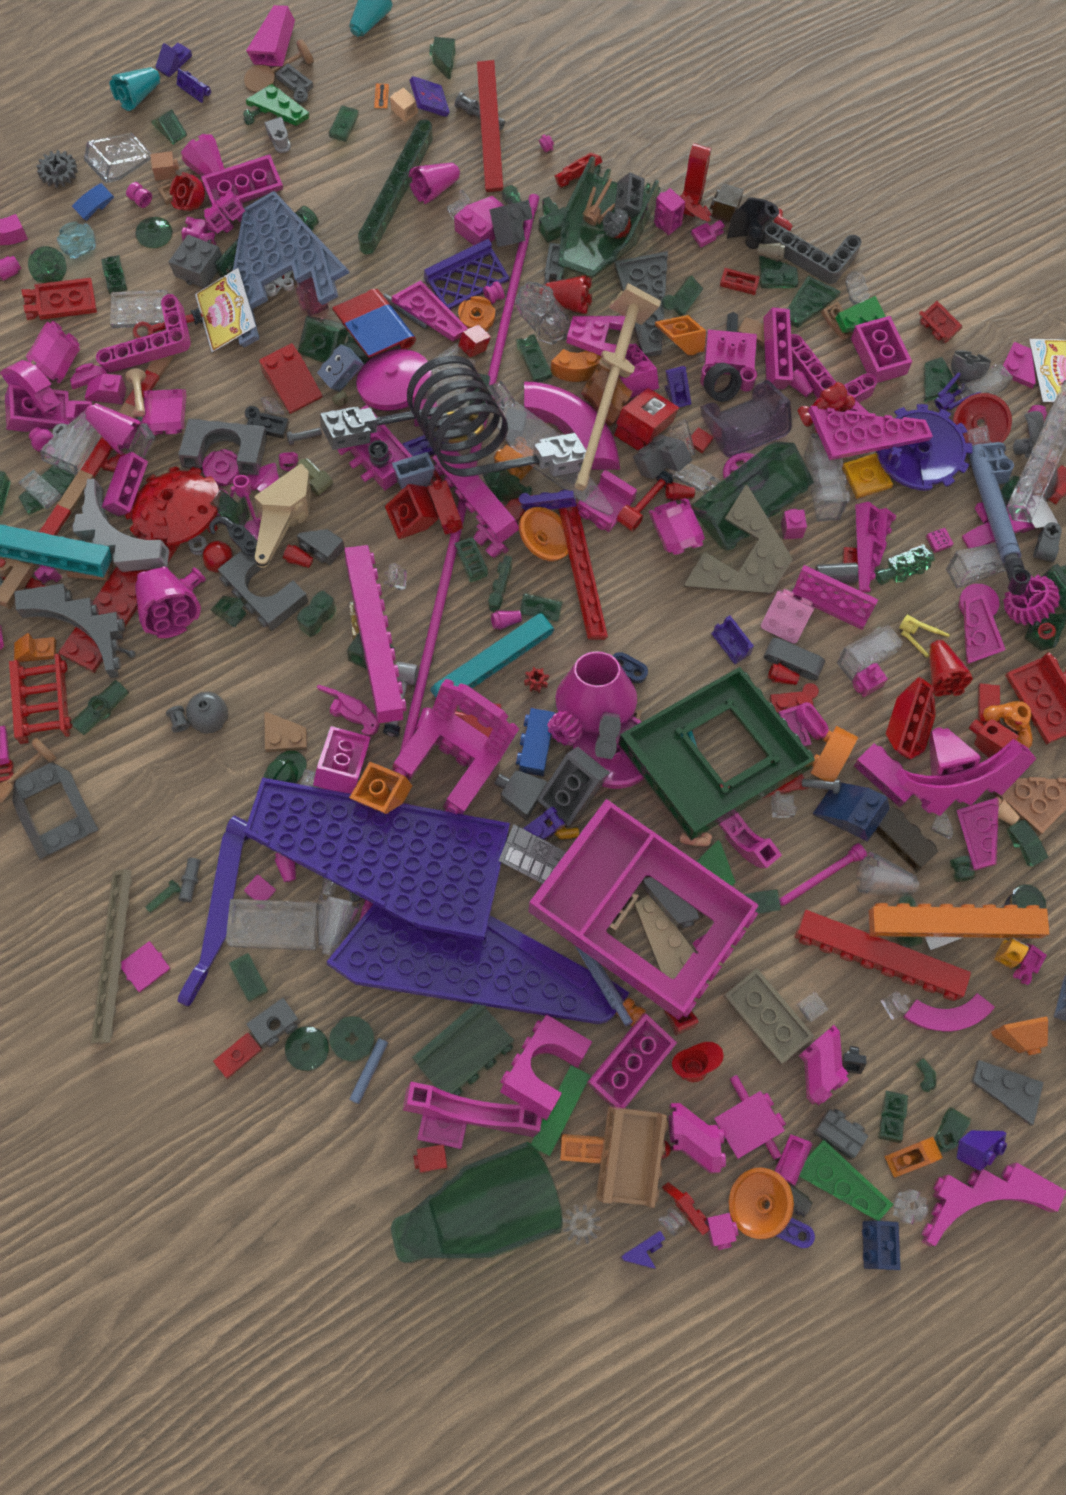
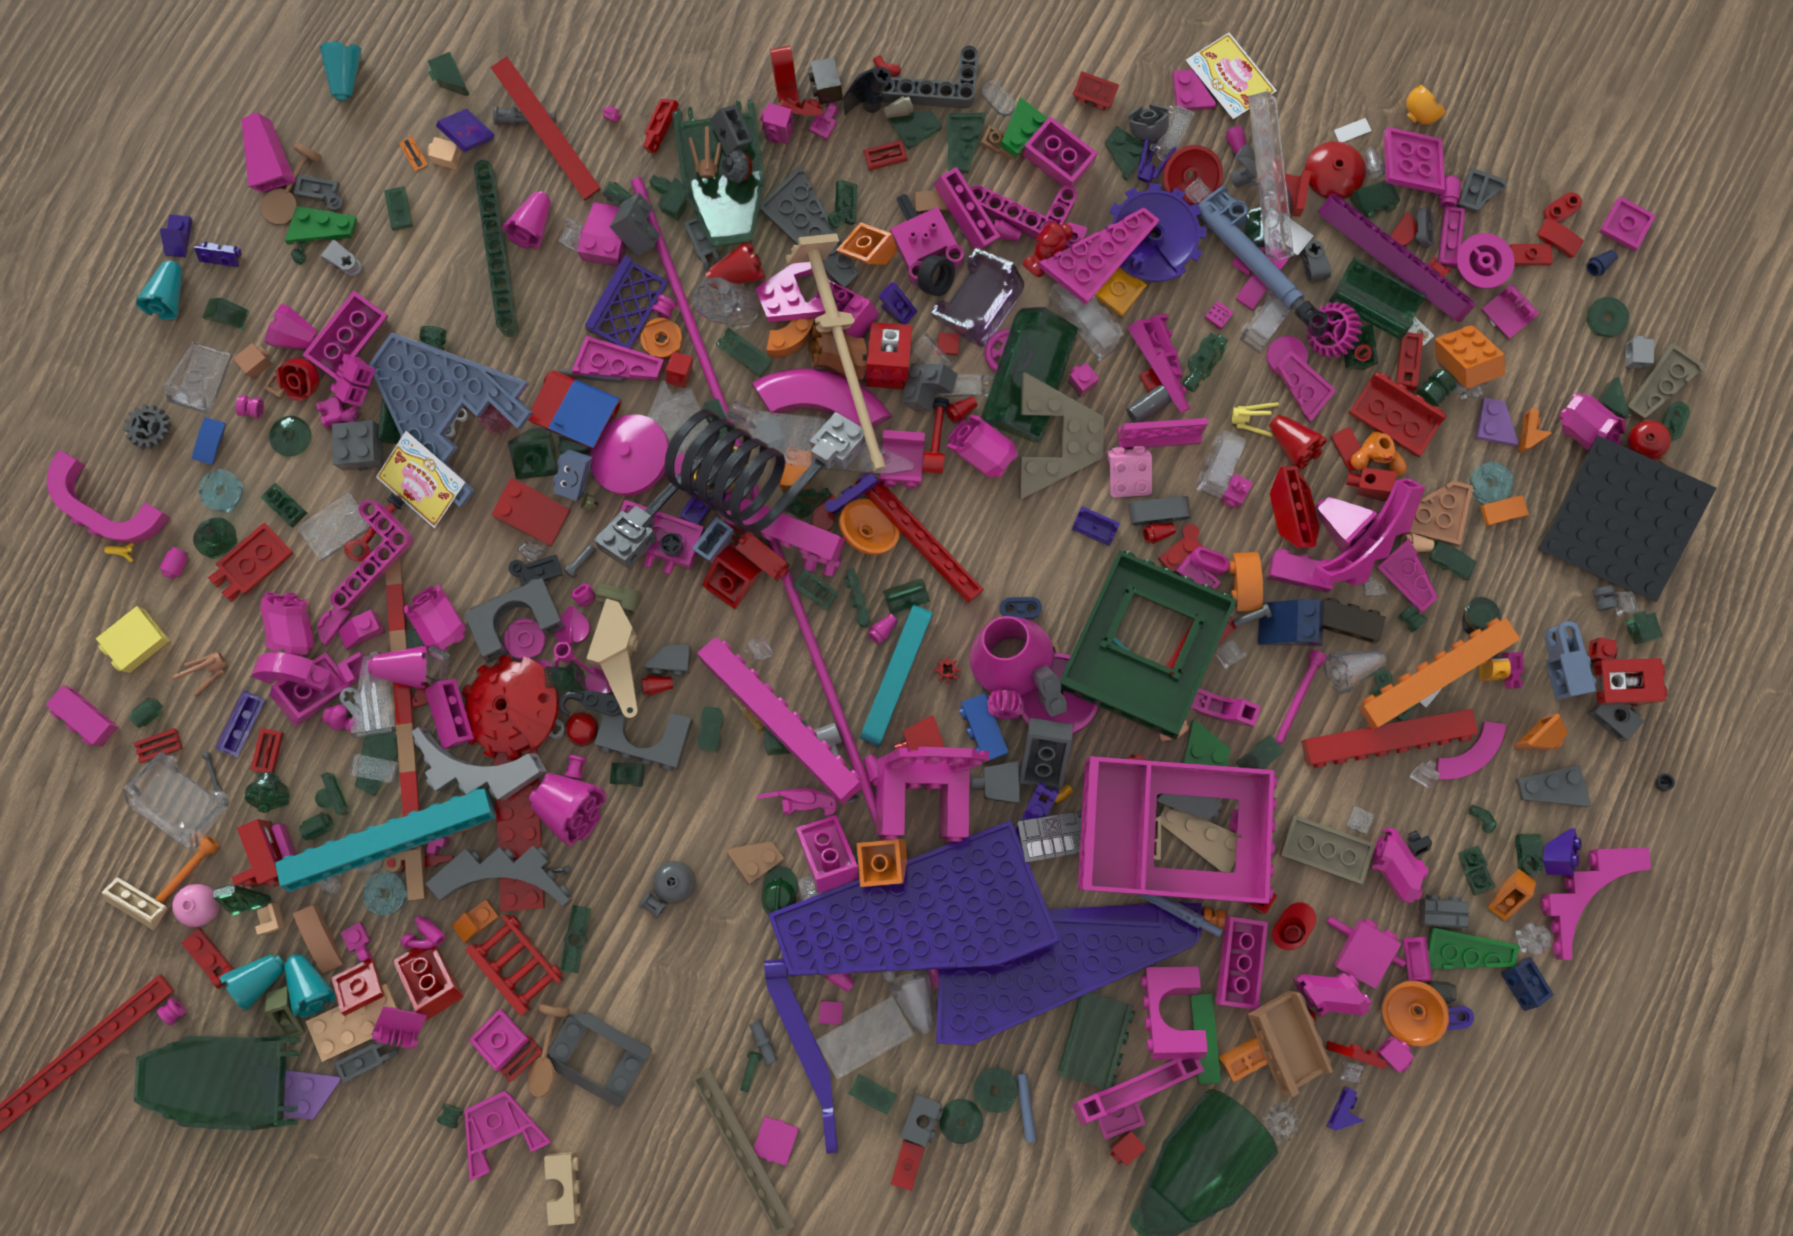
camera: 30 degrees left, 10 degrees up
(137, 376) = (385, 602): tan piece -> none

